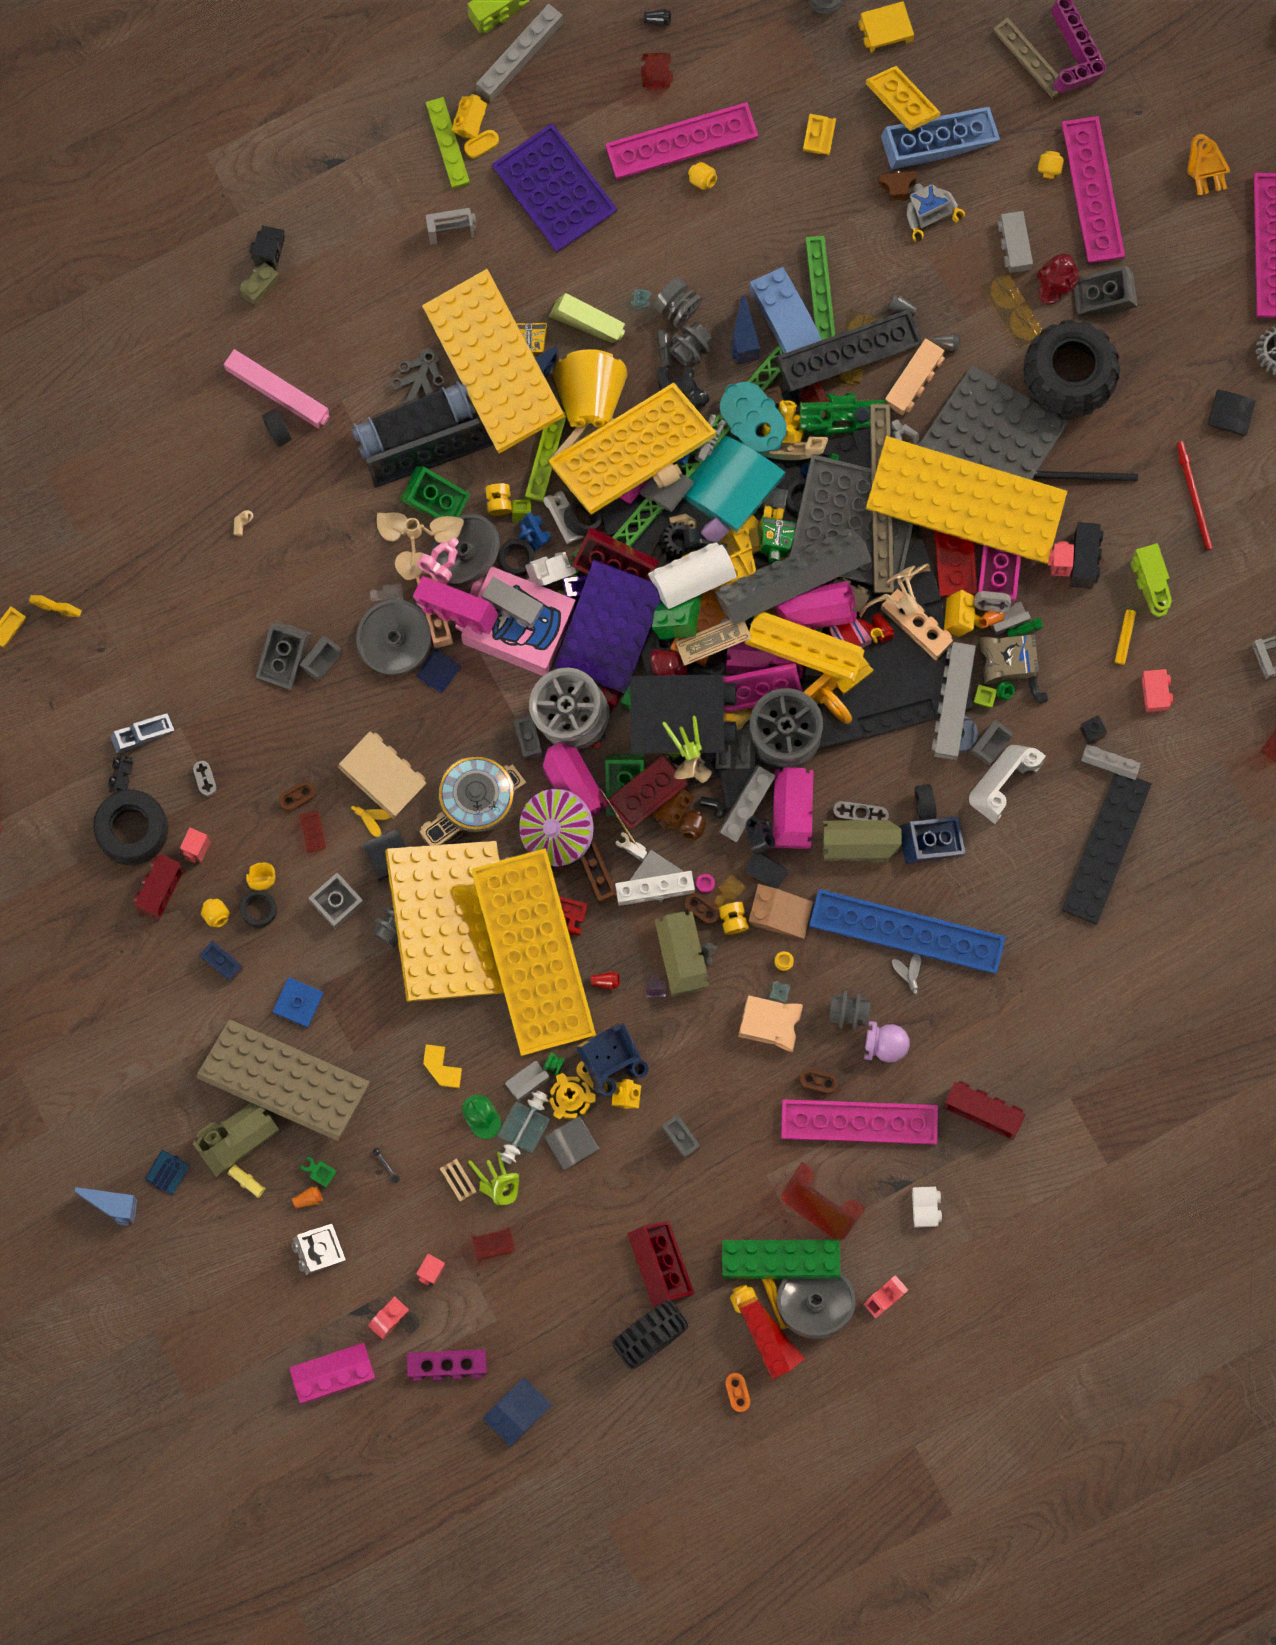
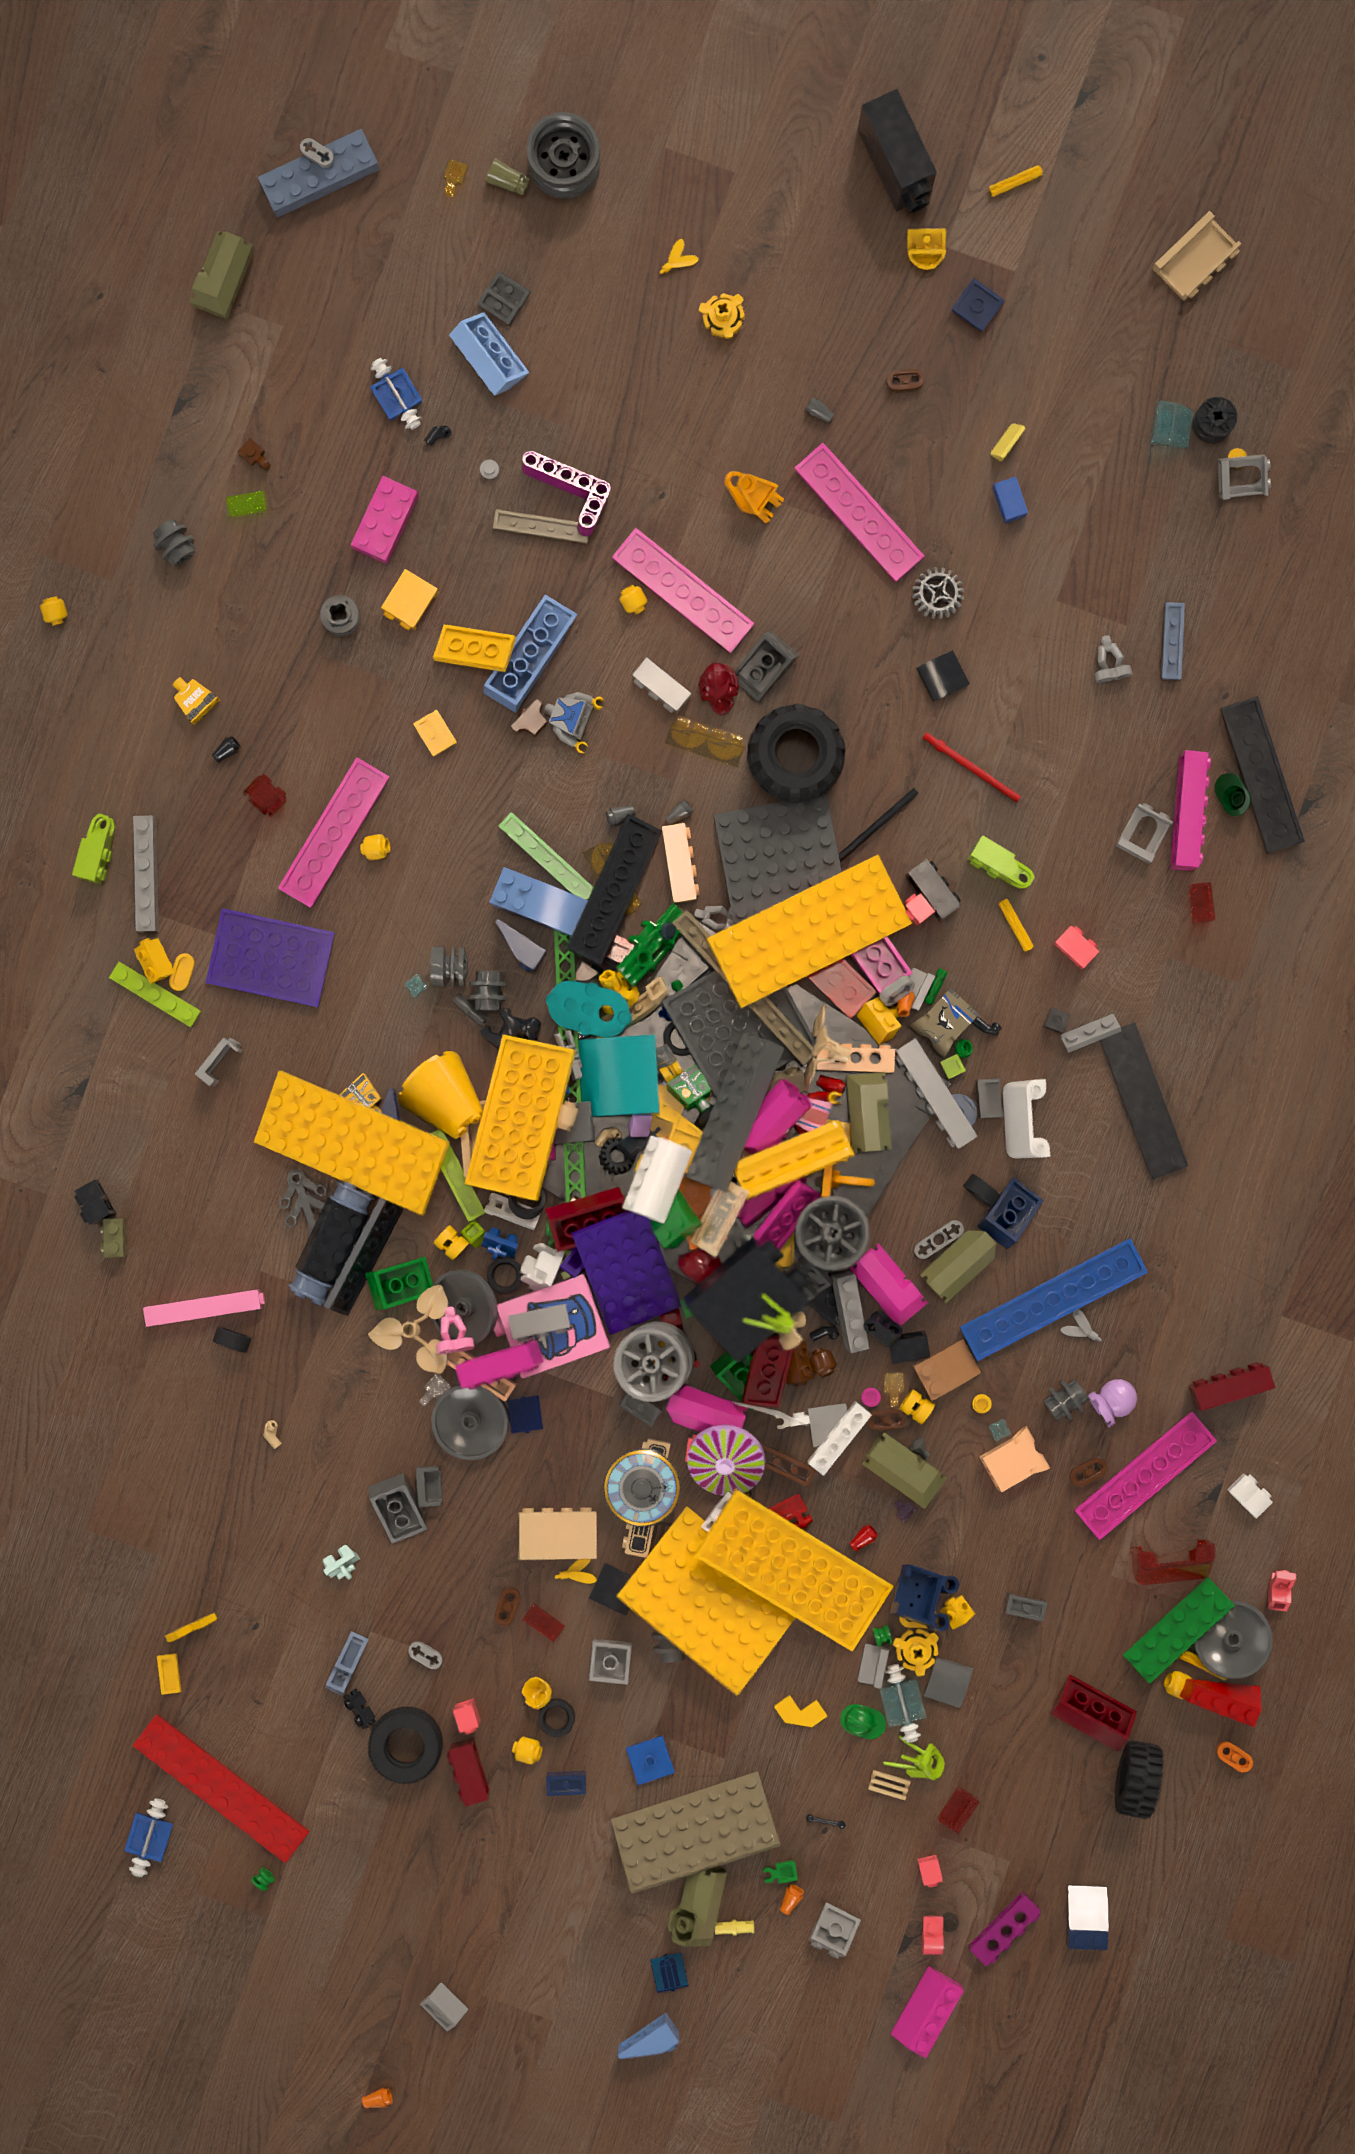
camera: 45 degrees left, 10 degrees up
(205, 659) = (342, 1566): none -> light aqua hips
(587, 318) = (390, 1040): yellowish green slope -> none
(891, 668) = (868, 1112): none -> olive brick

